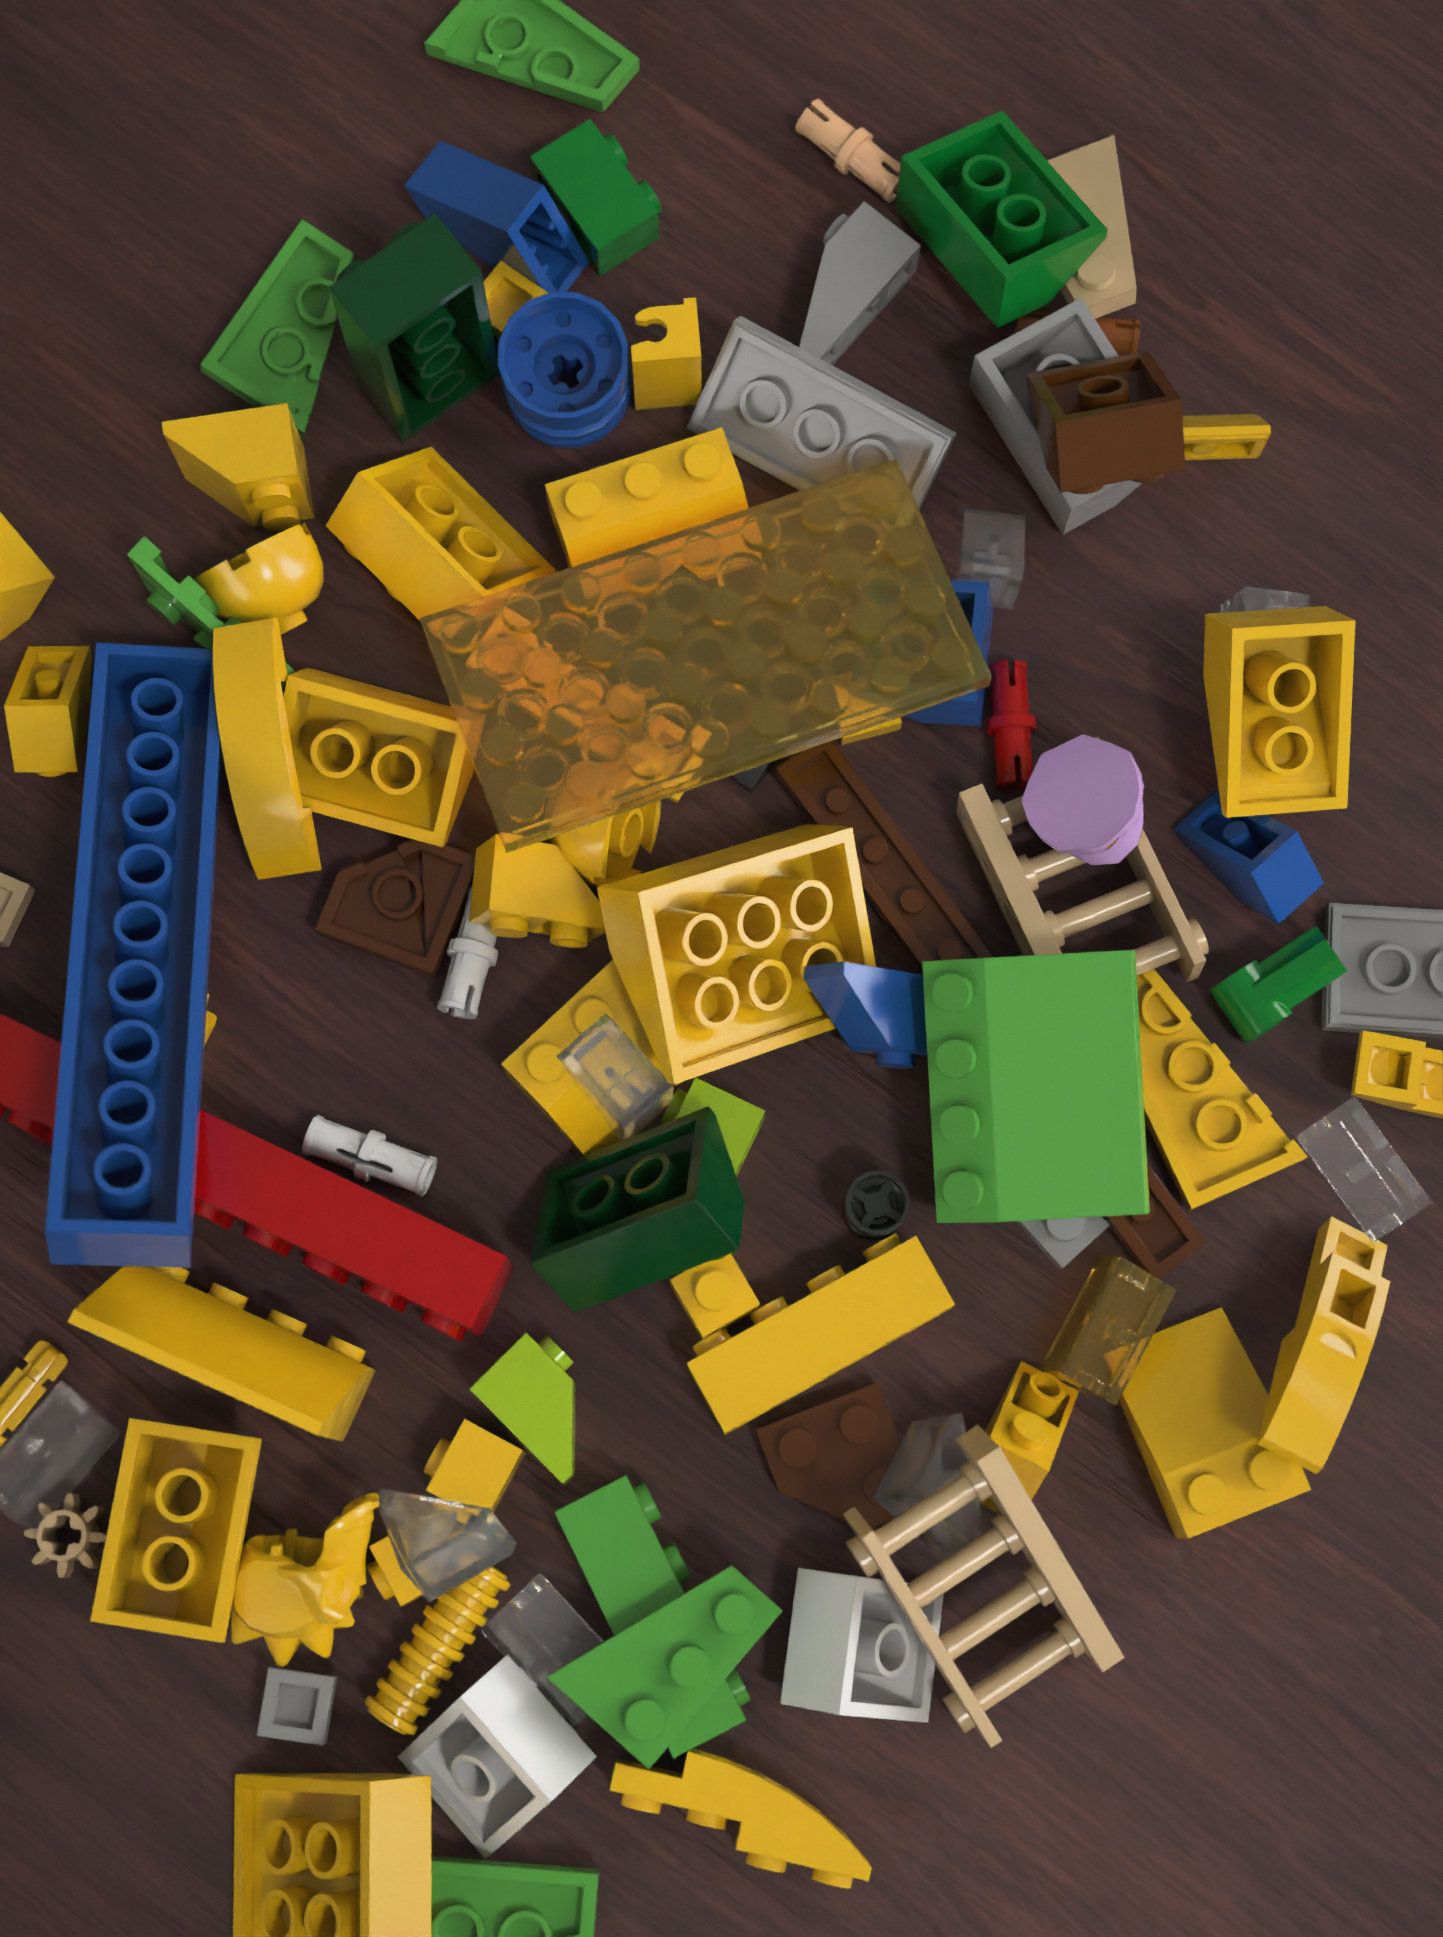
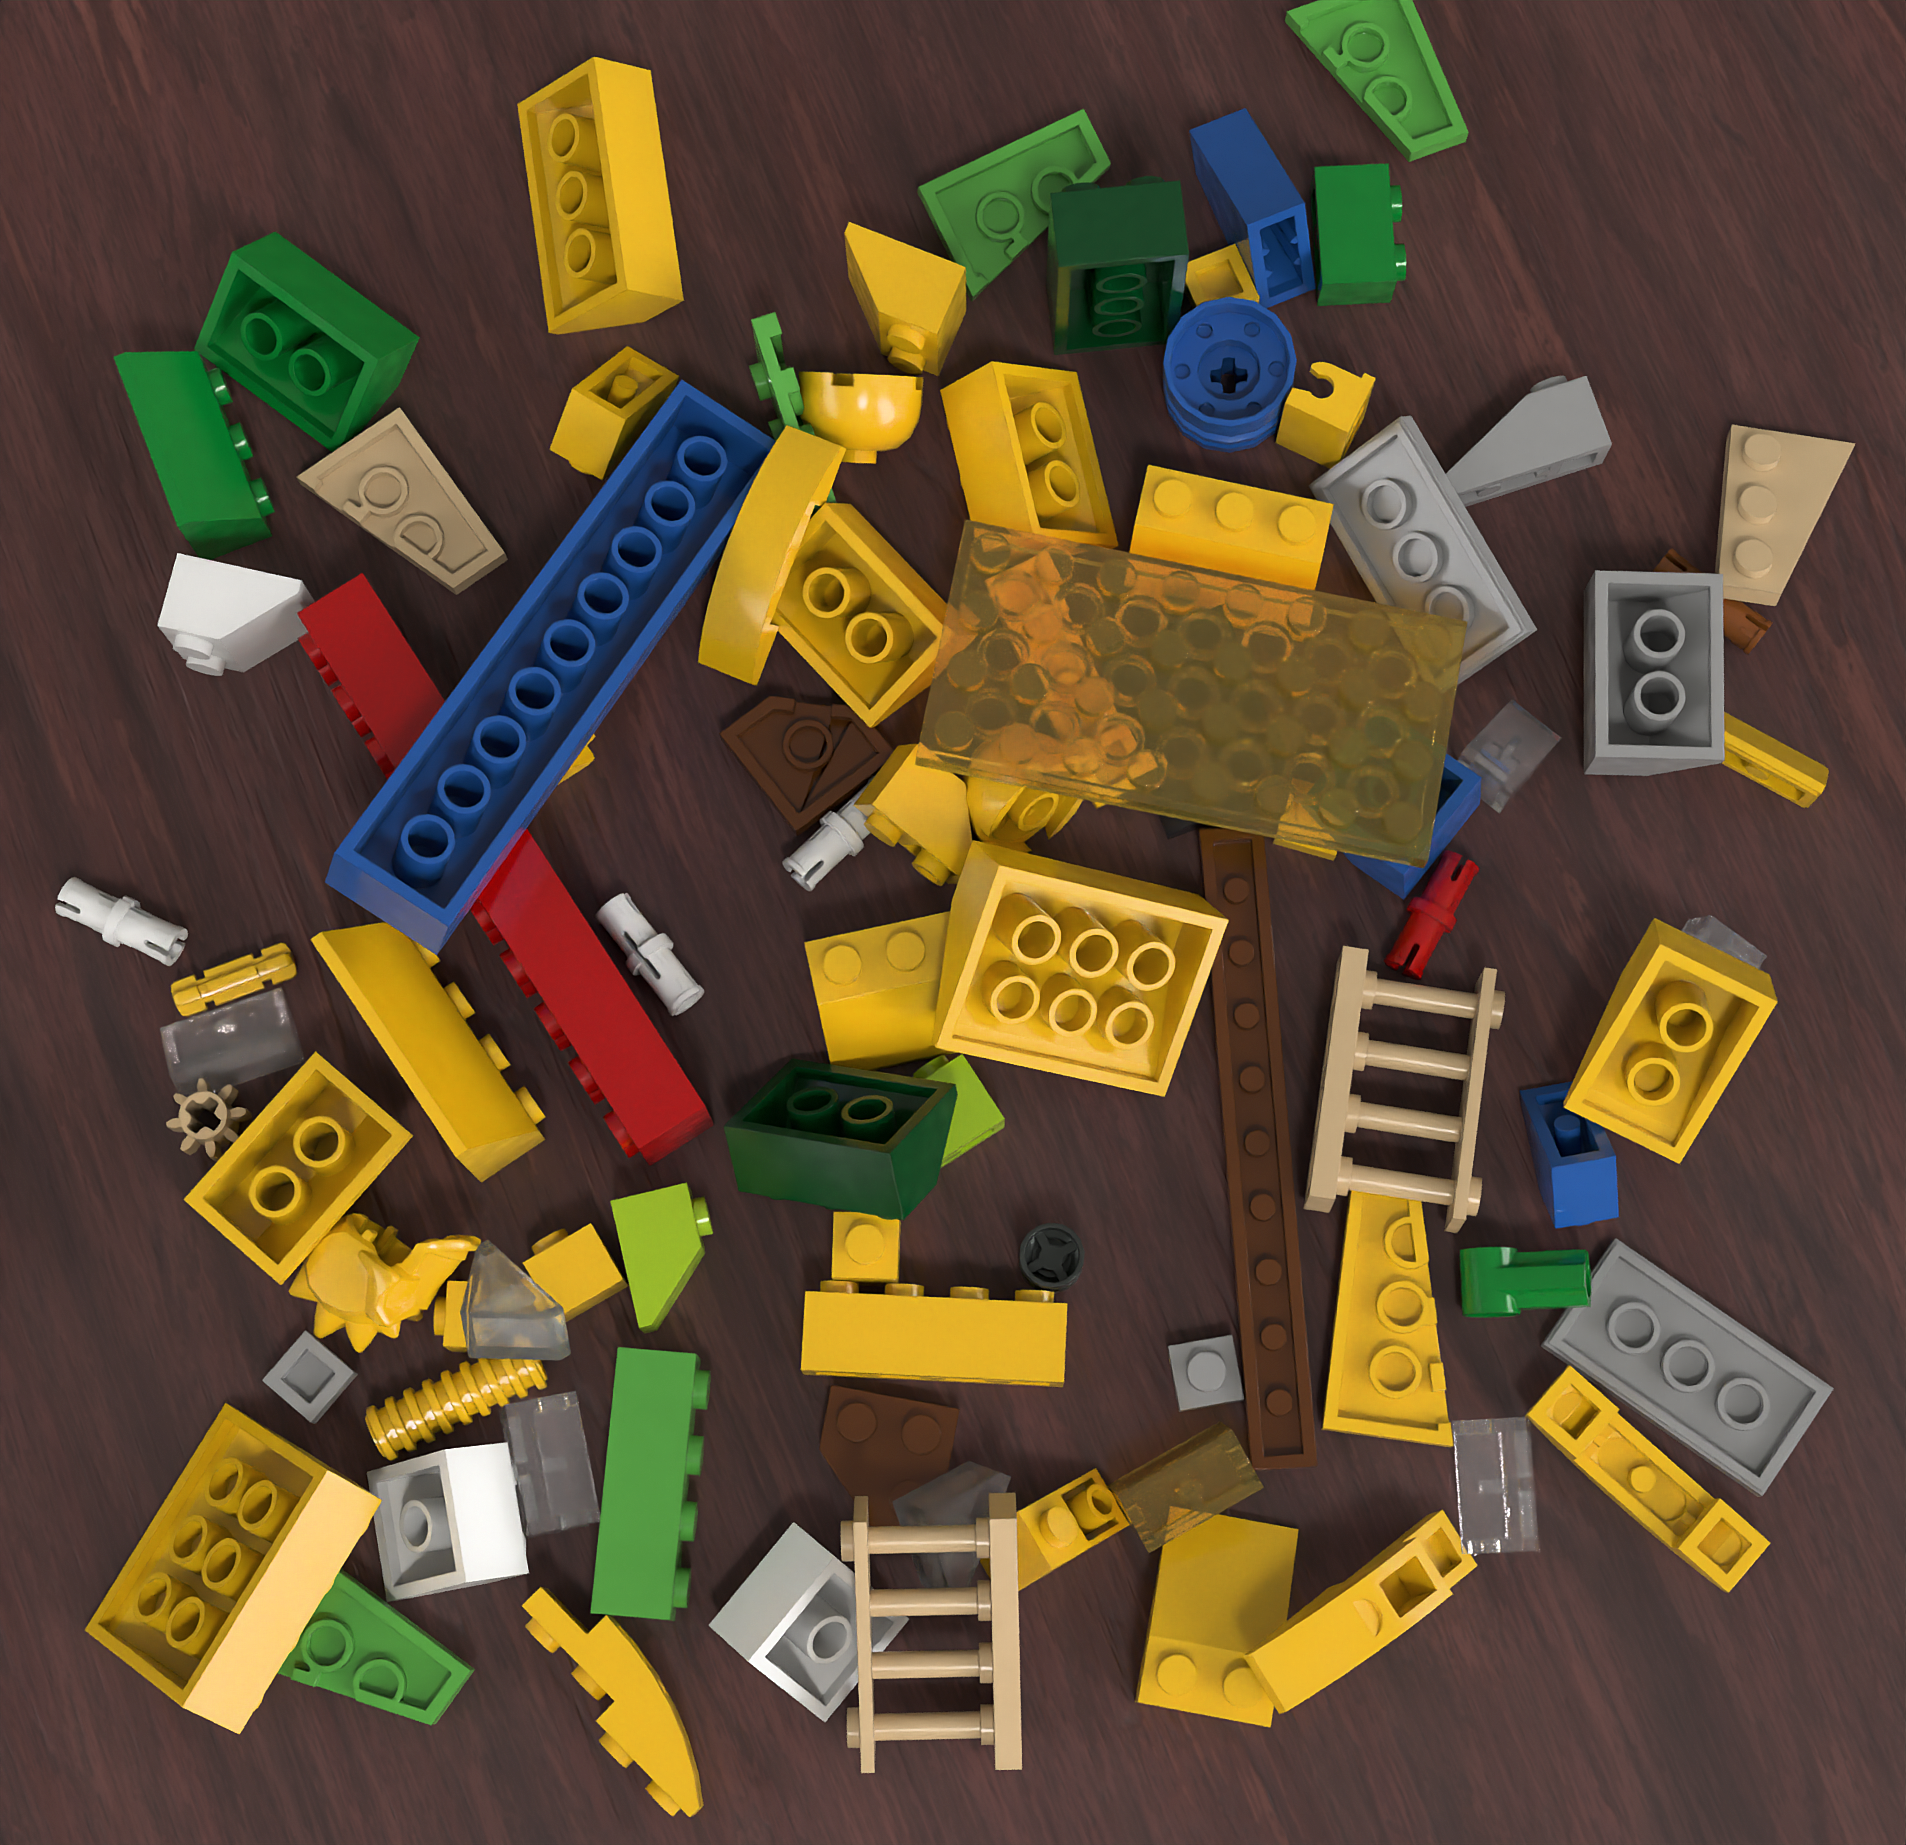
camera: 35 degrees right, 0 degrees up
(616, 1077) = (894, 1013): clear slope -> none
(668, 1664) = (634, 1531): bright green wing -> none
(850, 149) = (1610, 323): light nougat pin -> none
(874, 1009) = (1159, 1094): blue slope -> none
(997, 216) = (1697, 457): green slope -> none
(1036, 1087) = (1246, 1238): bright green slope -> none
(1086, 800) = (1447, 1019): lavender hat -> none
(1107, 422) = (1671, 698): reddish brown slope -> none

